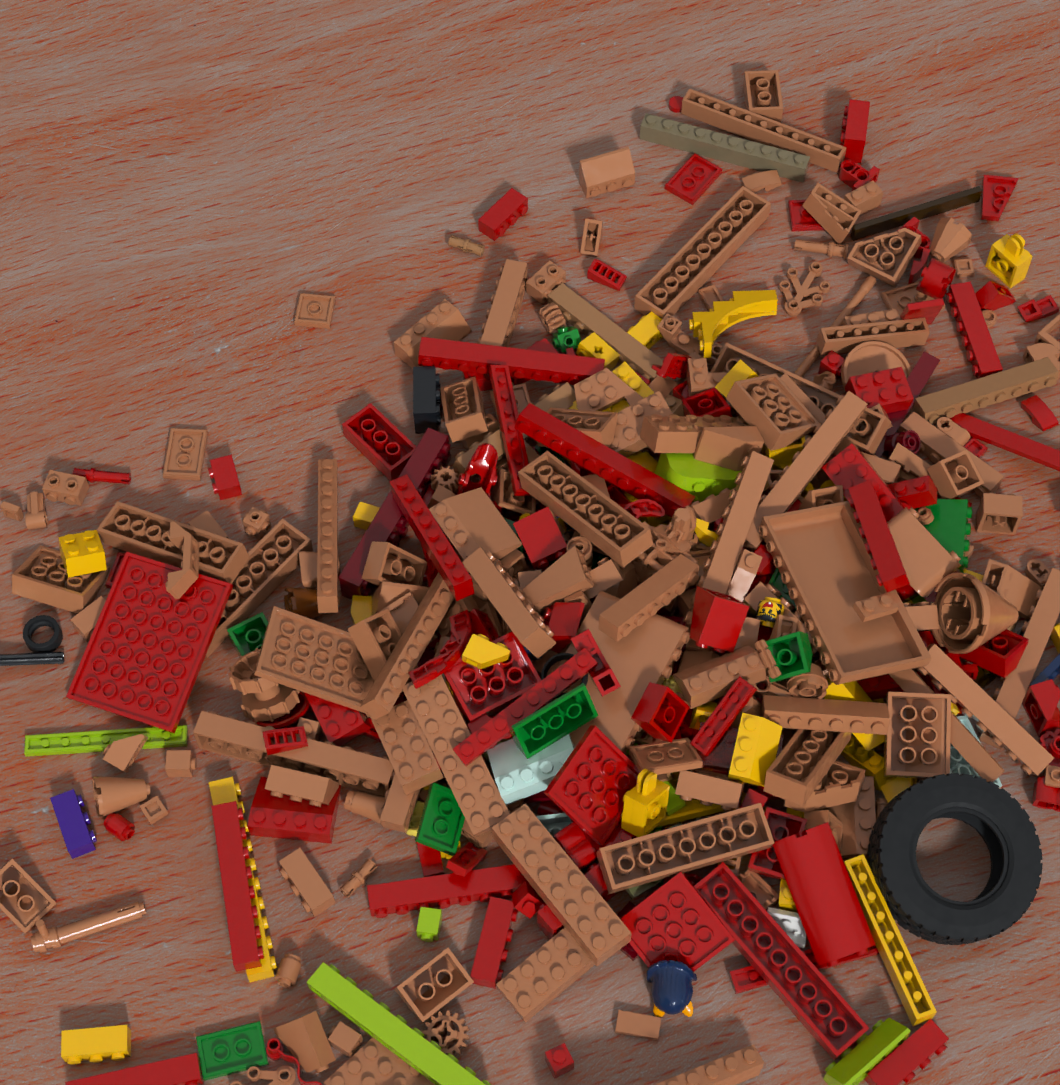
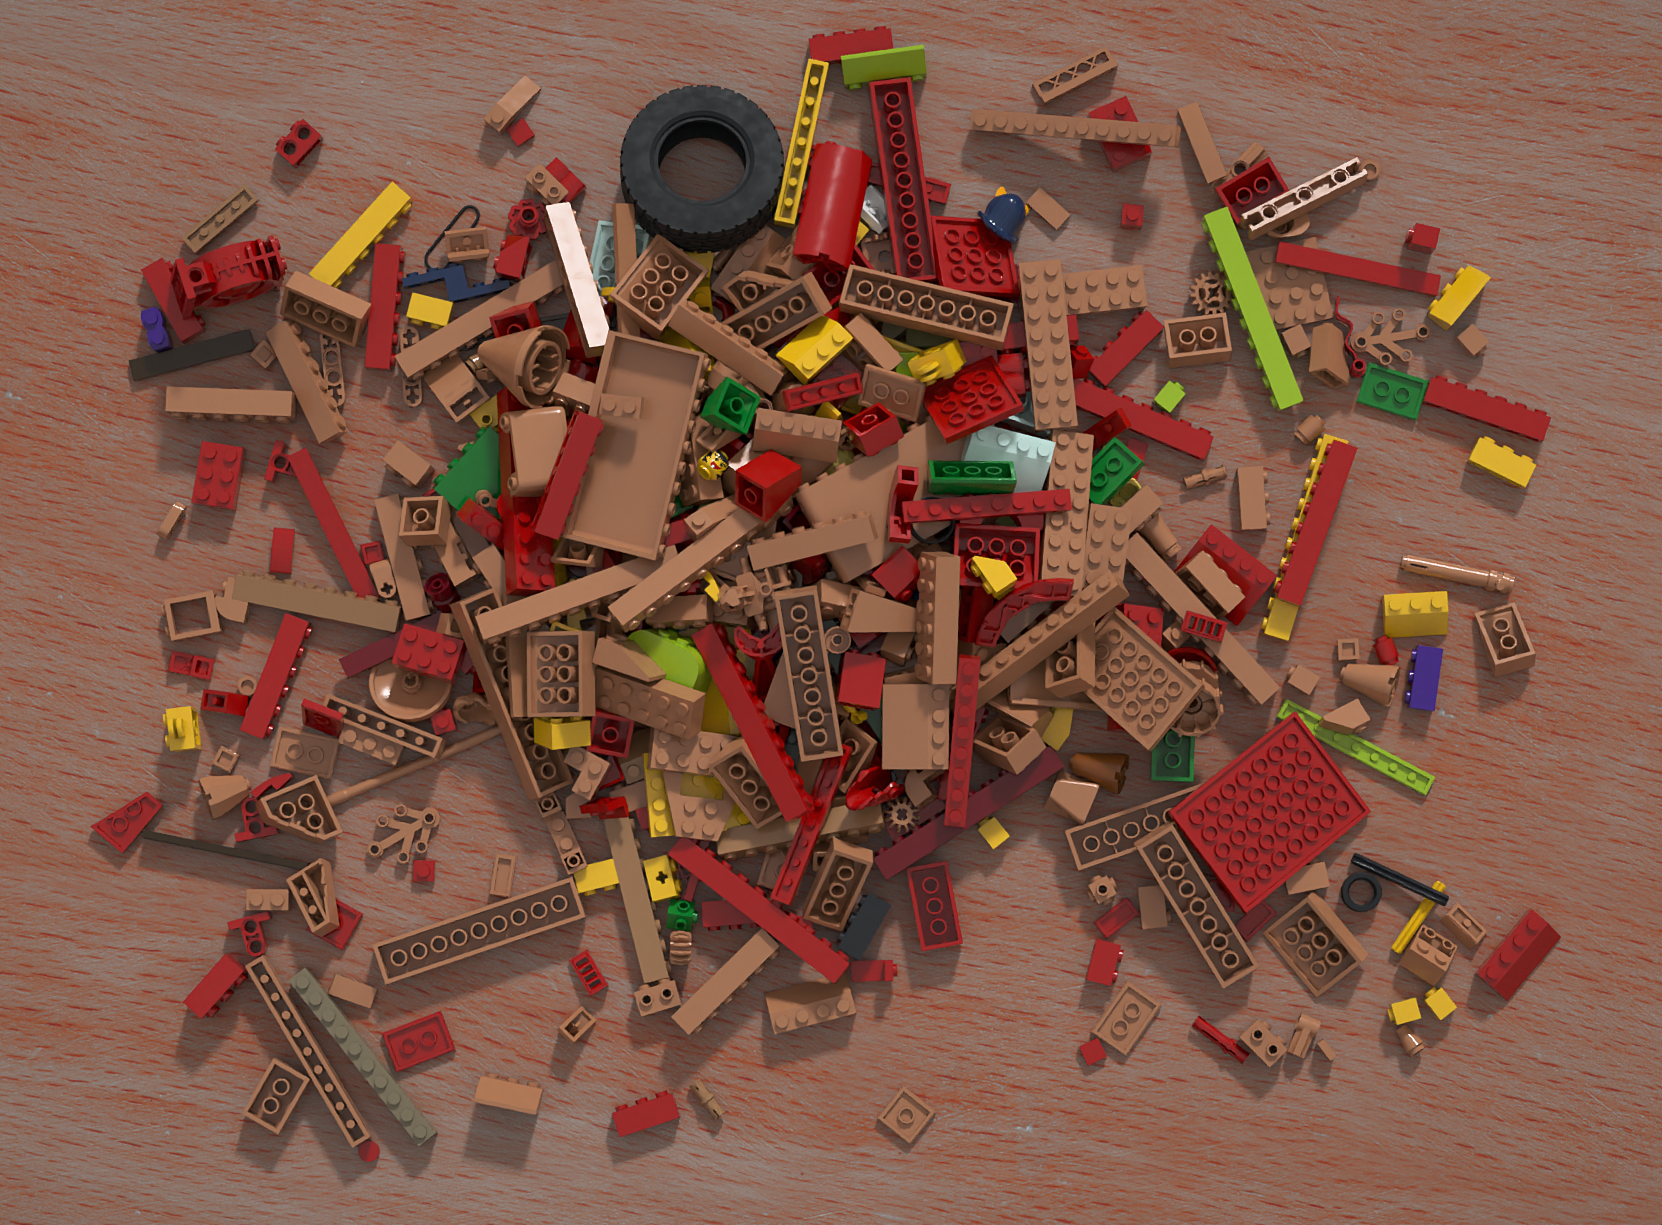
camera: 140 degrees left, 25 degrees up
(82, 553) = (1284, 951): yellow brick -> none
(110, 872) = (1415, 614): none -> yellow slope
(181, 580) = (1190, 892): nougat slope -> none
(198, 419) = (1092, 1051): none -> red tile
(234, 514) = (1116, 917): none -> red tile
(327, 536) = (1048, 820): nougat brick -> none
(397, 384) = (873, 970): none -> red bracket
(724, 314) = (482, 845): yellow arch -> none
(767, 659) = (752, 413): nougat axle -> none
(770, 275) = (424, 871): none -> red plate
(830, 248) = (344, 862): nougat pin -> none
(936, 279) = (275, 749): red brick -> none

